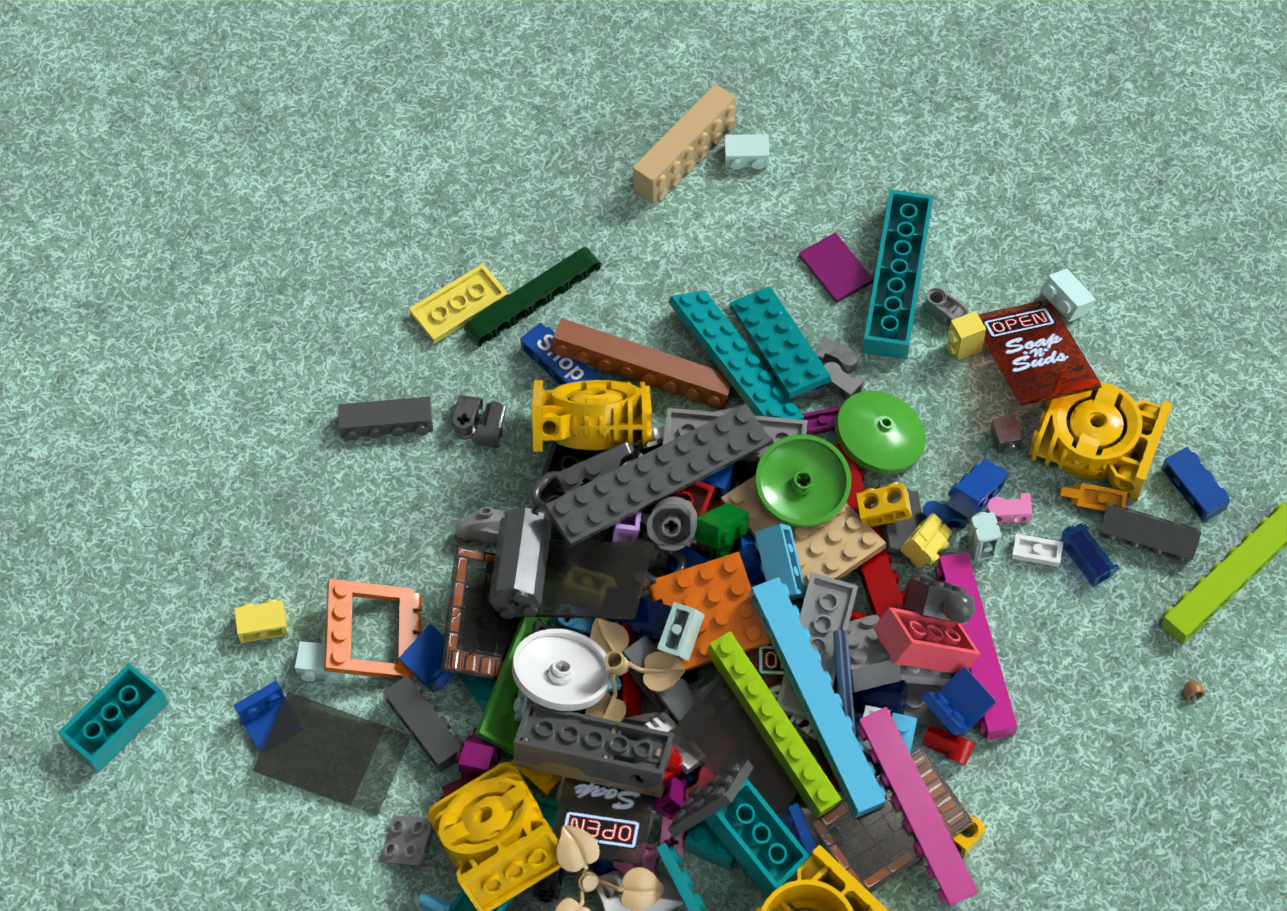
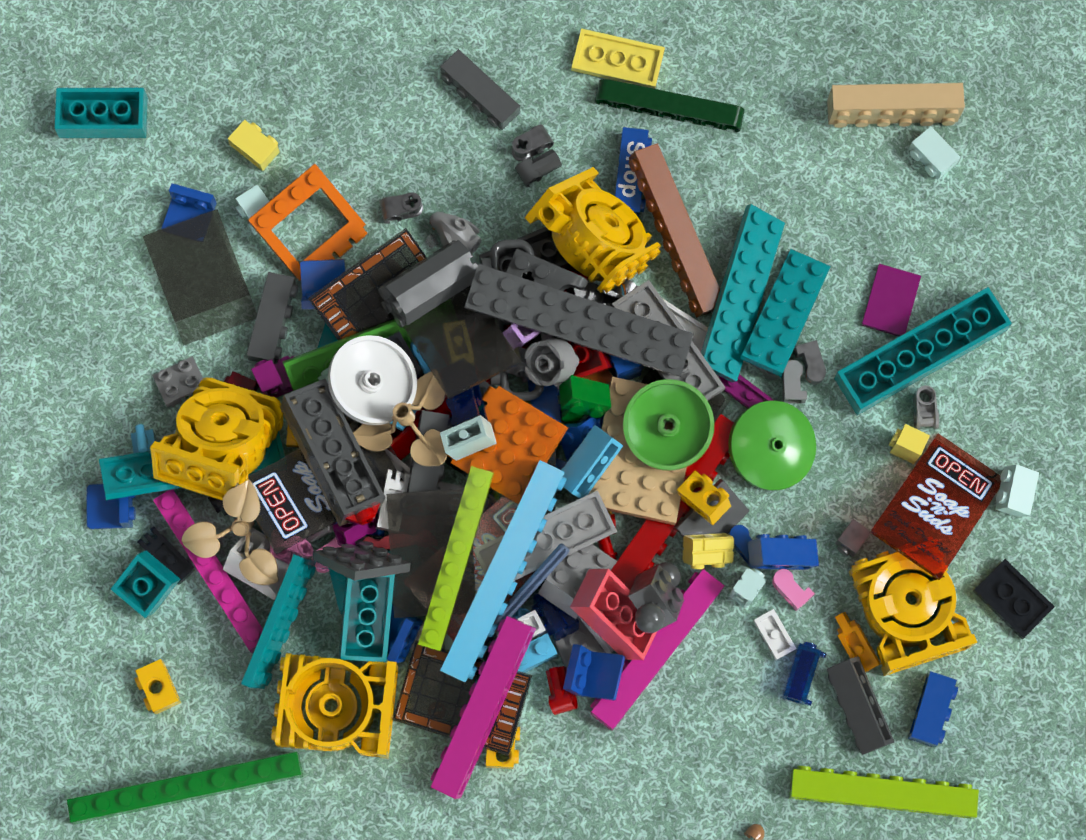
camera: 45 degrees right, 15 degrees up
(424, 553) = (399, 207): none -> flat silver piece
(1152, 363) = (1013, 599): none -> black plate

